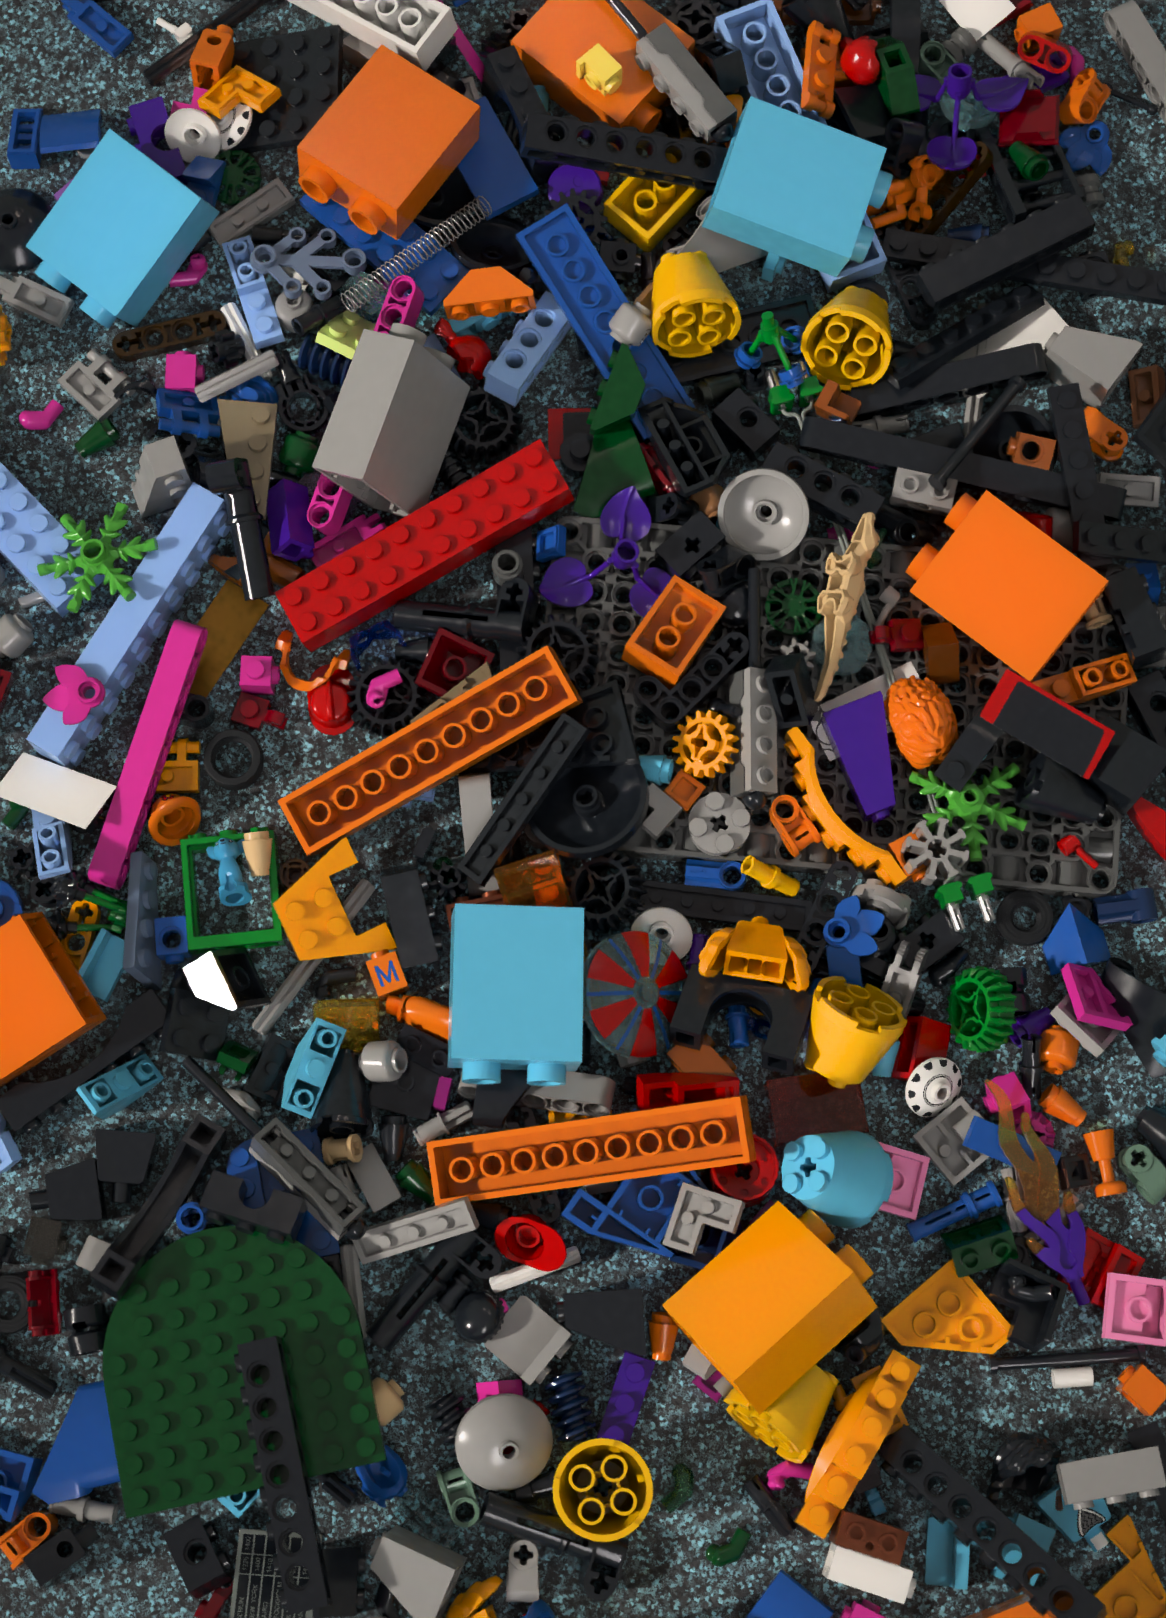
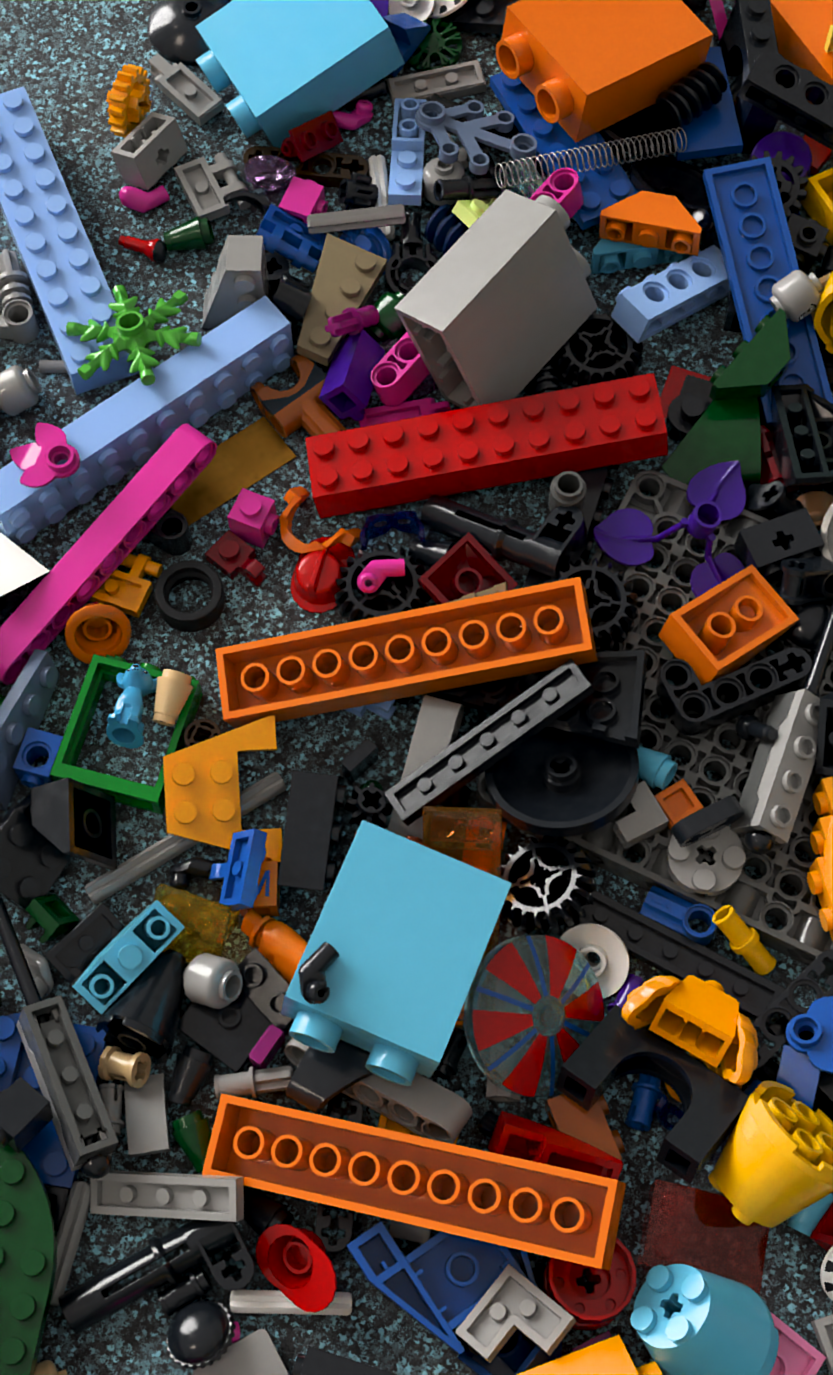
camera: 20 degrees right, 10 degrees down
(30, 372) = (149, 150): none -> light grey brick
(72, 461) = (153, 249): none -> red piece
(144, 357) = (278, 173): none -> clear purple gear
(167, 310) = (312, 137): none -> dark red hinge
(234, 481) = (306, 302): black piece -> none
(273, 475) = (352, 321): none -> magenta axle
(371, 969) = (242, 869): none -> blue plate
(466, 1035) = (312, 974): none -> black arm
(468, 349) = (607, 273): red hair -> none
(477, 160) = (691, 96): none -> black piece
(551, 543) = (624, 491): blue tile -> none
(702, 729) = (721, 759): light orange gear -> none
(711, 798) = (707, 821): none -> black beam
(794, 826) = (793, 895): orange piece -> none

